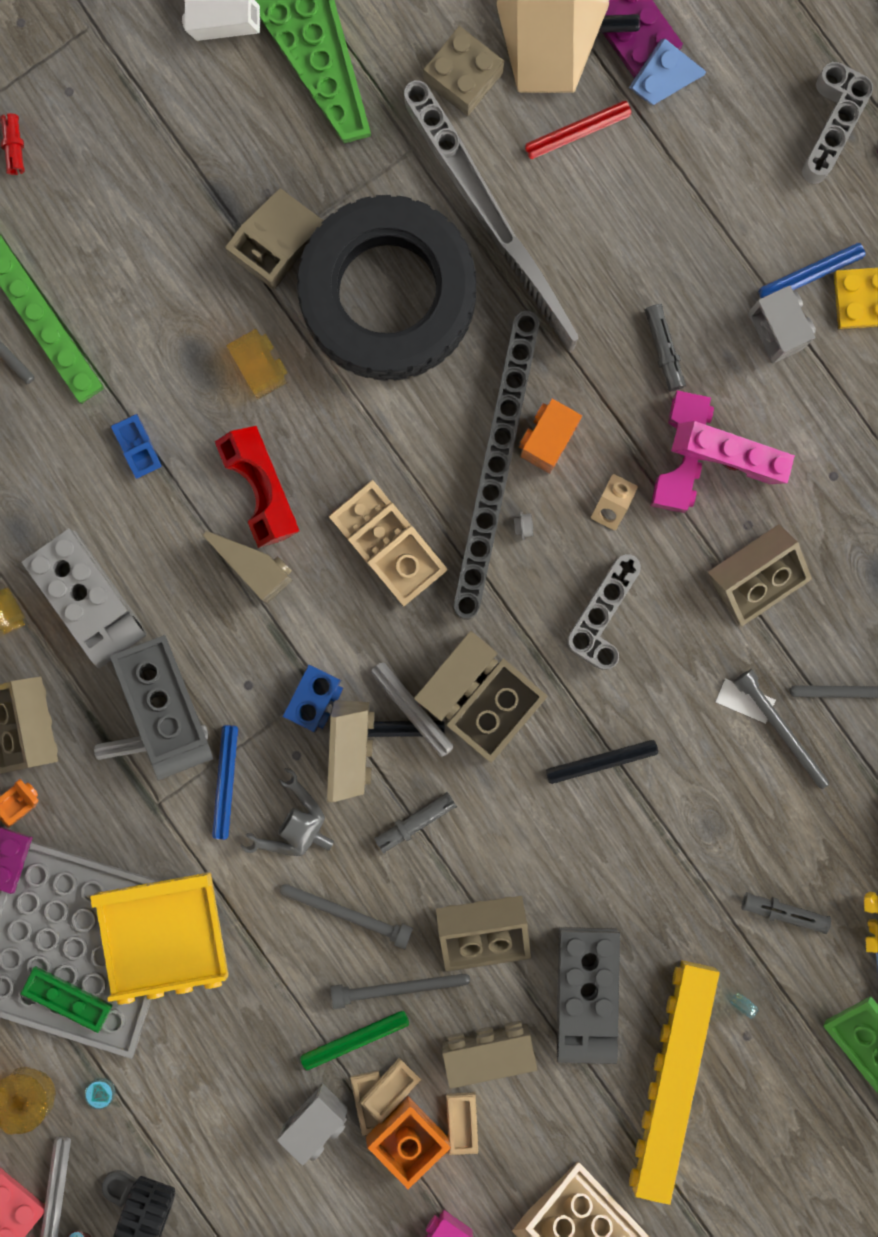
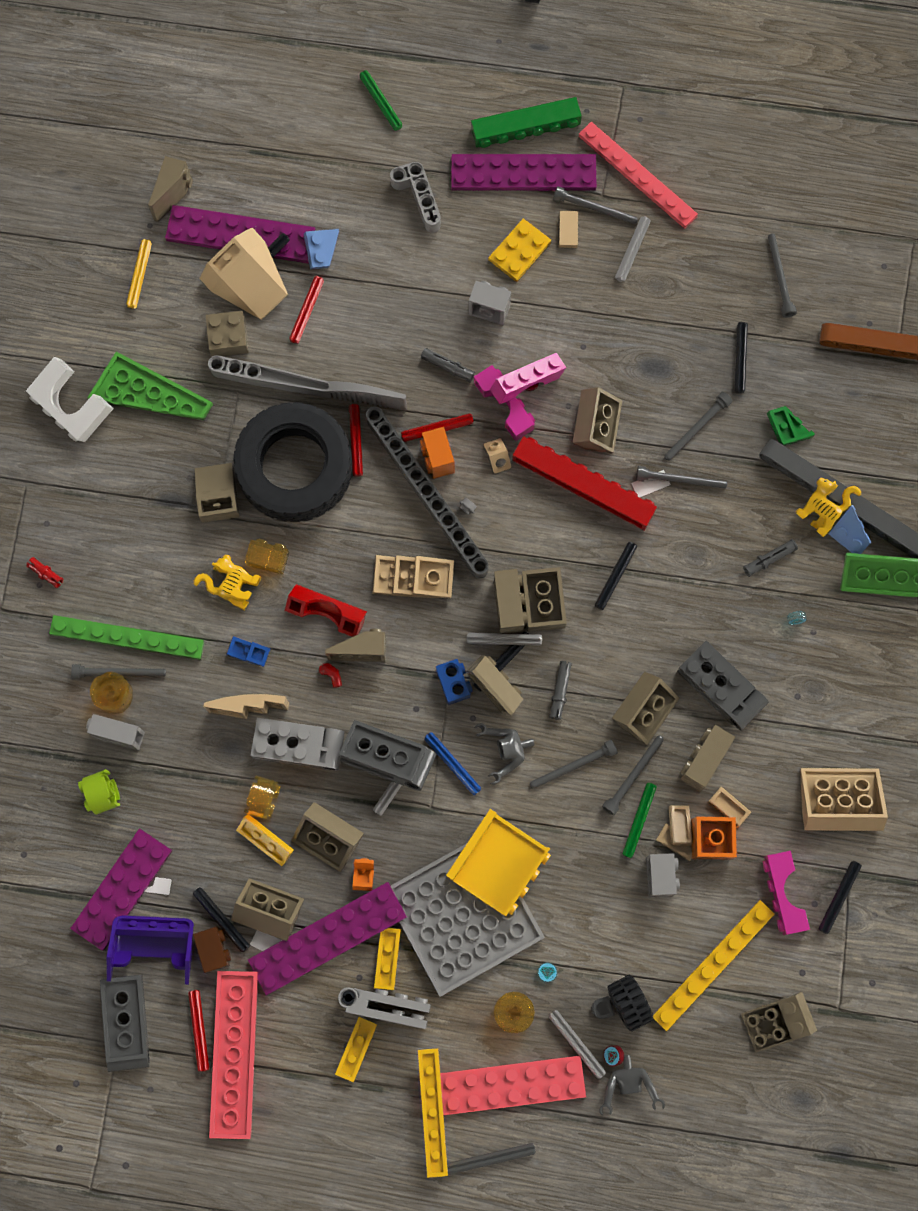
camera: 50 degrees left, 10 degrees down
(66, 999) = (485, 940): green tile -> none
(67, 501) = (240, 705): none -> tan slope
(191, 356) = (231, 586): none -> yellow animal
(200, 558) = (333, 672): none -> red arm
(481, 331) = (356, 448): none -> red axle
(581, 405) = (448, 424): none -> red axle
(608, 608) = (545, 504): light grey beam -> none
(674, 629) = (584, 483): none -> red brick
(675, 1082) = (803, 684): yellow brick -> none
(816, 270) = (479, 266): blue axle -> none

